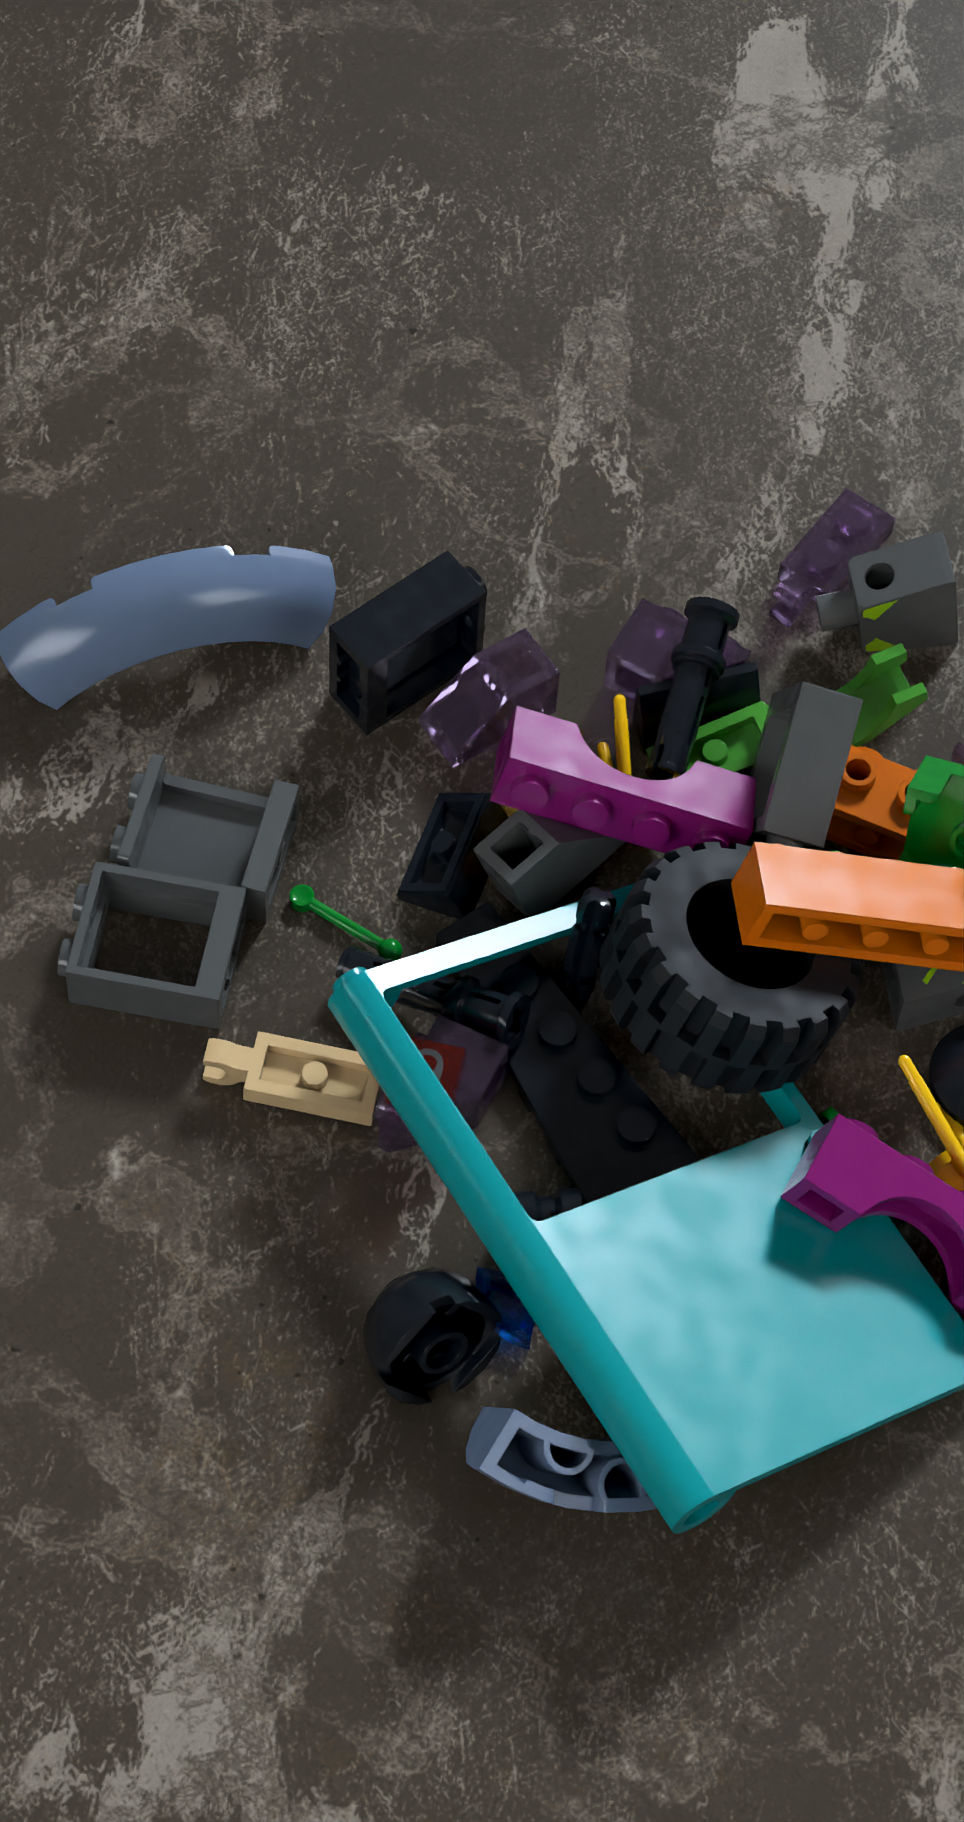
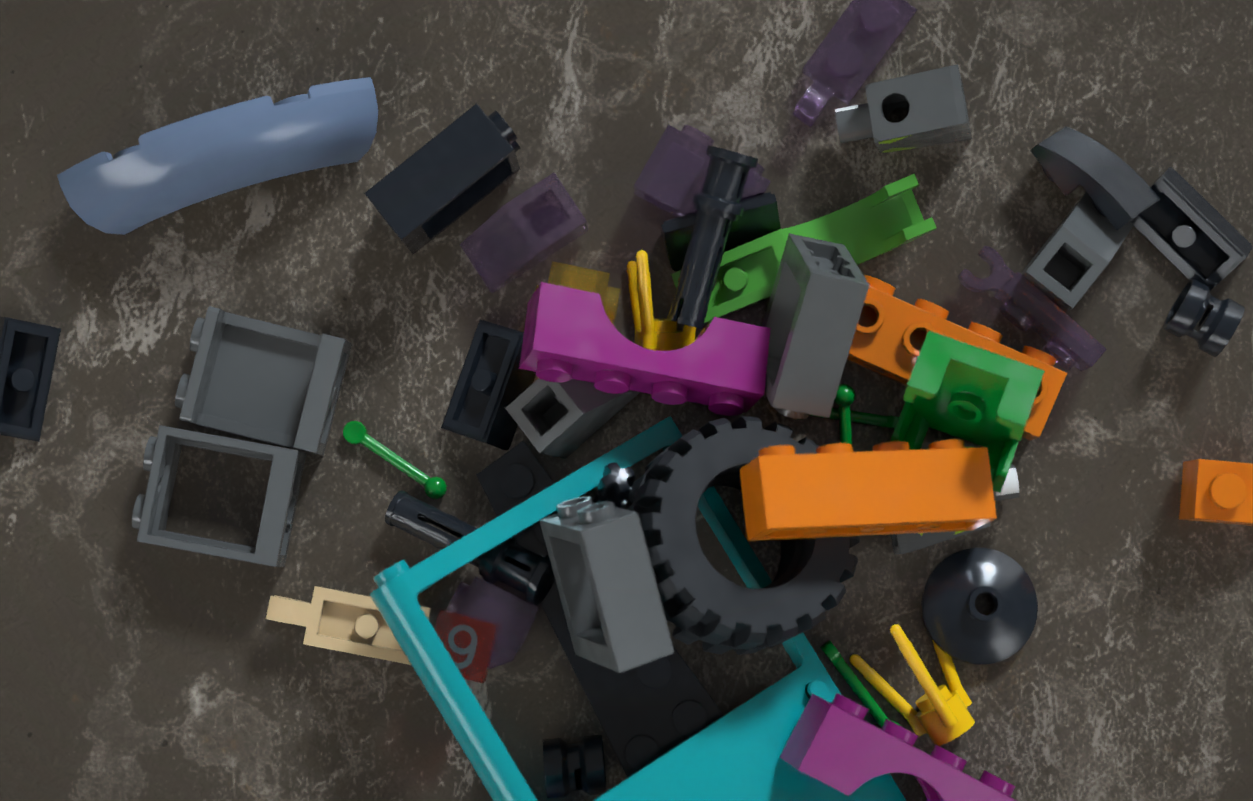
camera: 10 degrees right, 25 degrees up
(587, 994) = (606, 584): none -> dark grey window

